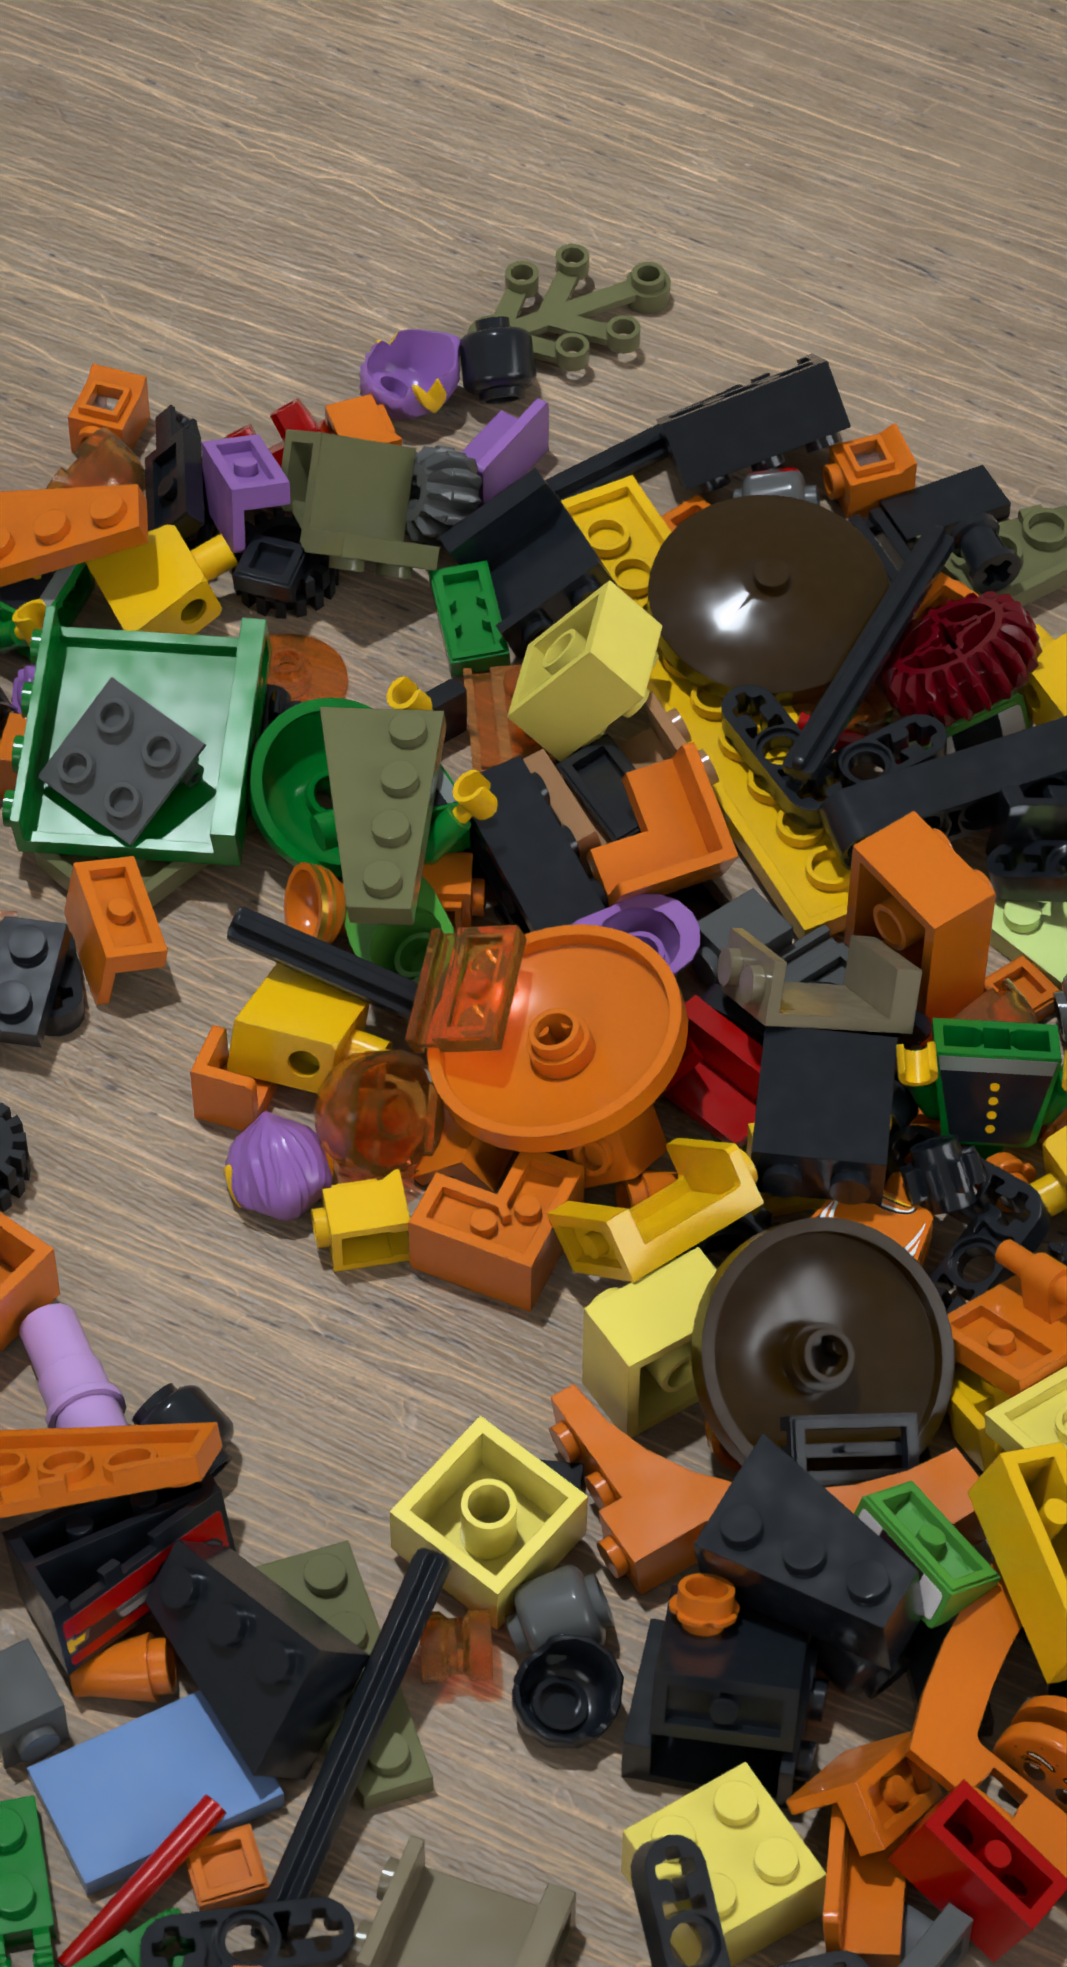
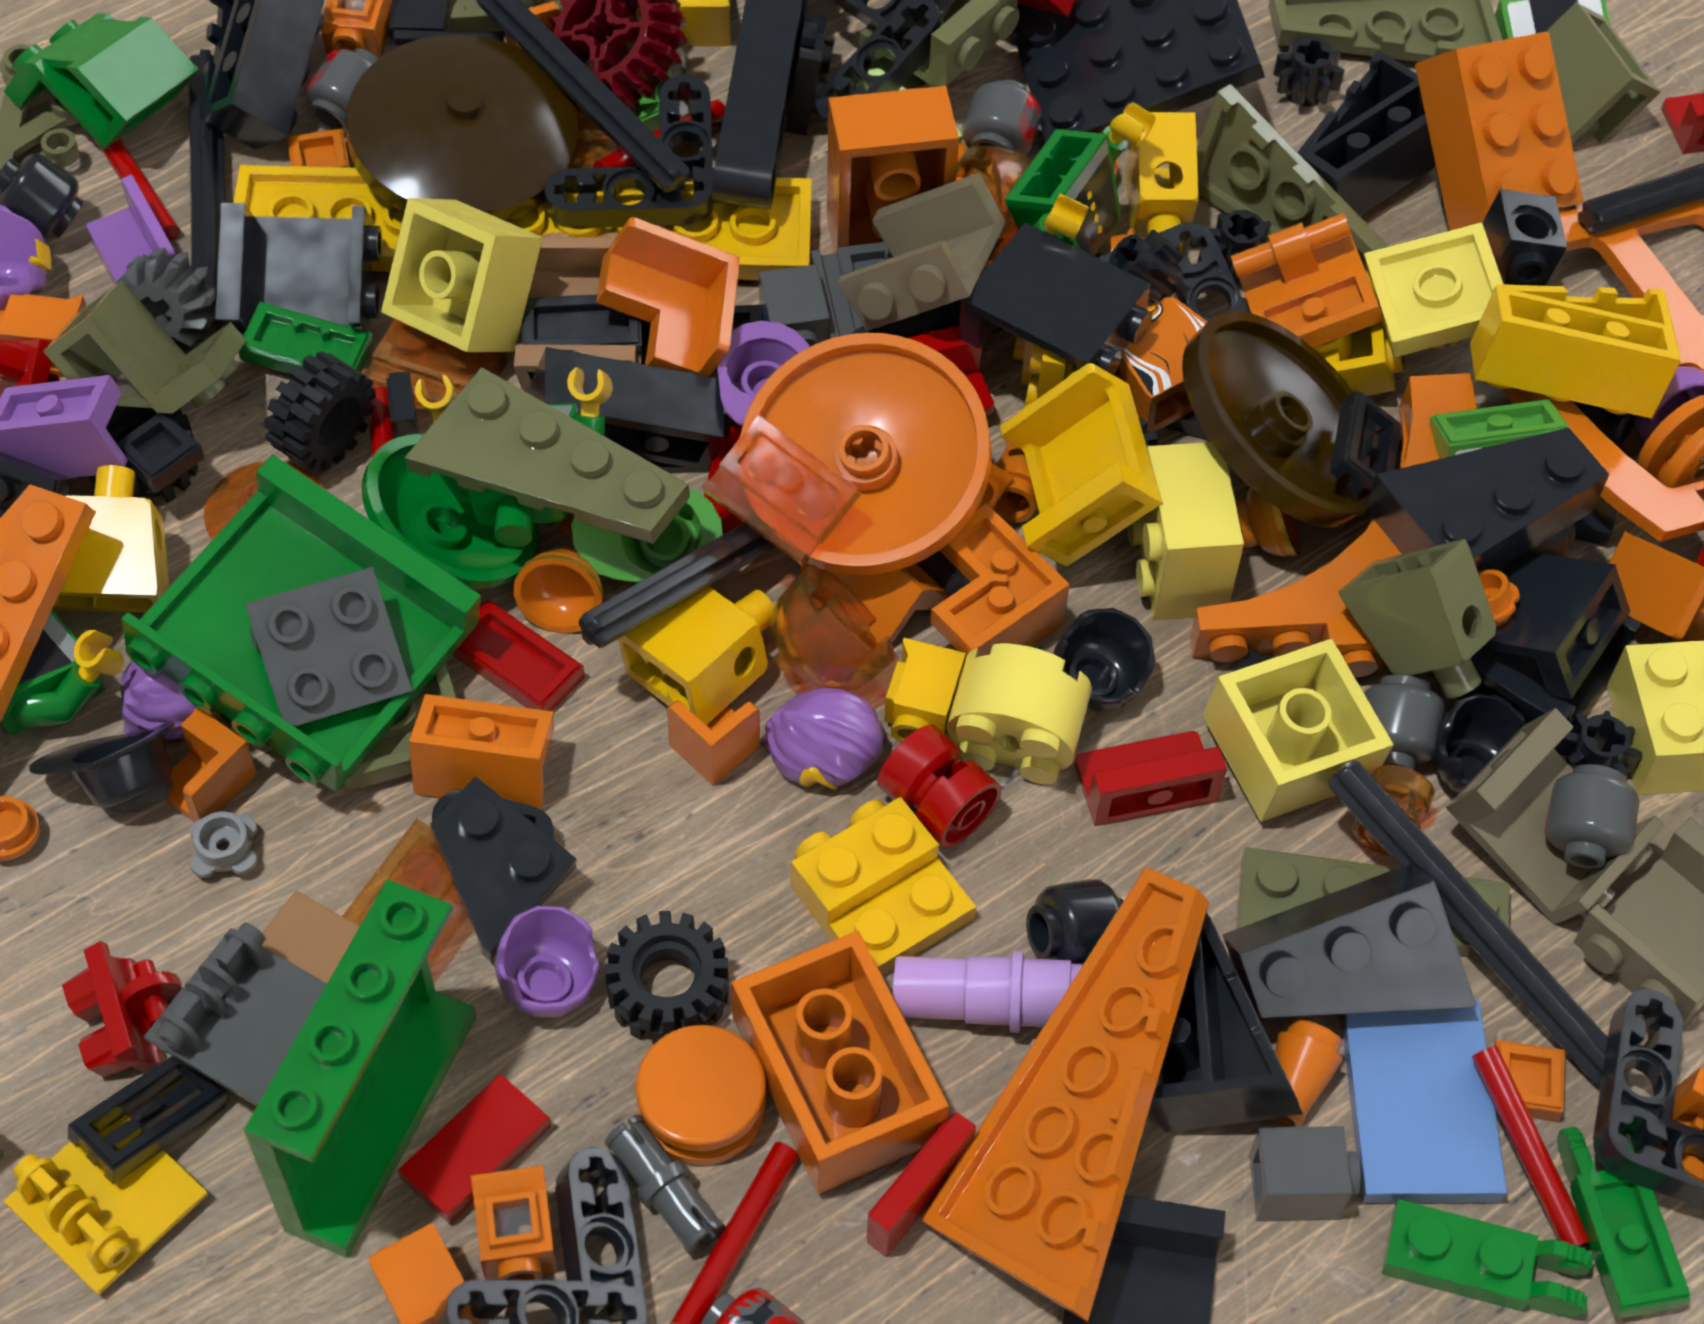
camera: 65 degrees left, 5 degrees up
(147, 1274) = (882, 882): none -> yellow plate
(233, 887) = (519, 660): none -> red tile
(267, 1268) = (946, 792): none -> red wheel
(369, 1291) = (1019, 711): none -> light yellow brick
(380, 1431) = (1150, 777): none -> red panel
(388, 629) = (319, 411): none -> black tyre
(481, 1342) = (1109, 651): none -> black hair
(513, 1778) = (1508, 814): none -> dark tan panel
(521, 1799) = (1592, 815): none -> dark grey head
(582, 416) = (125, 165): none -> red bar
(627, 1782) = (1601, 742): none -> black gear
(653, 1531) = (1425, 613): none -> olive torso
(658, 334) = (104, 73): none -> green piece

